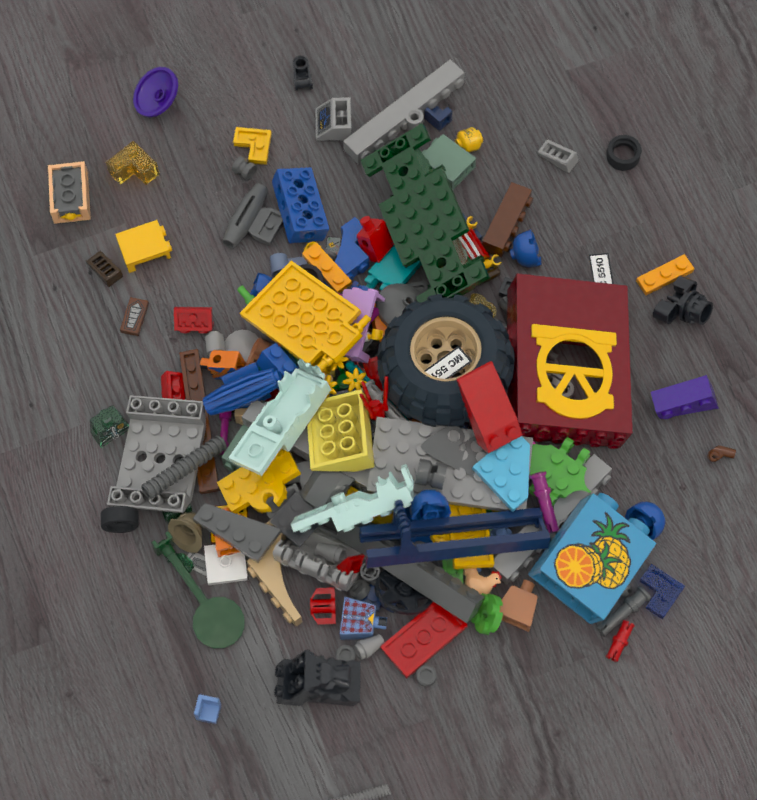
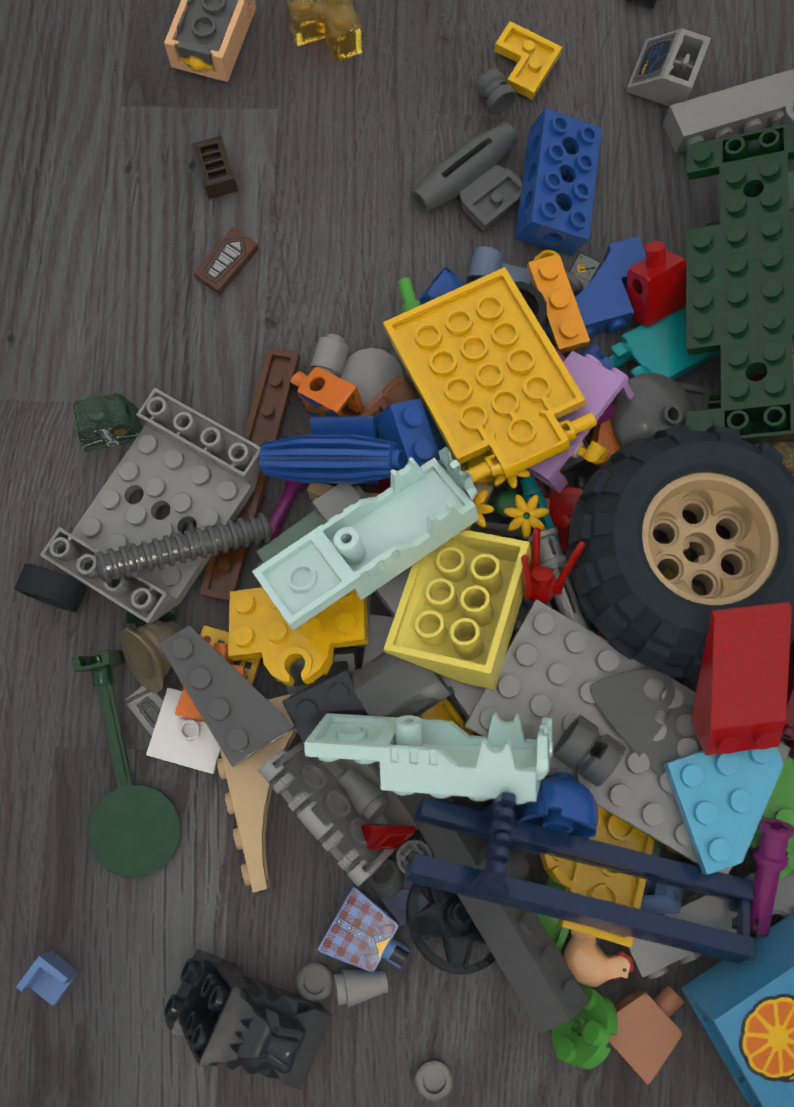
camera: 20 degrees right, 10 degrees up
(143, 244) = (287, 150): yellow panel -> none
(172, 385) = (234, 401): red slope -> none
(185, 560) = (128, 705): clear green arm -> none
(193, 319) = (311, 302): red bracket -> none
(332, 609) = (313, 880): red piece -> none
(422, 638) = (450, 1015): red plate -> none
(449, 364) = (702, 566): sticker -> none

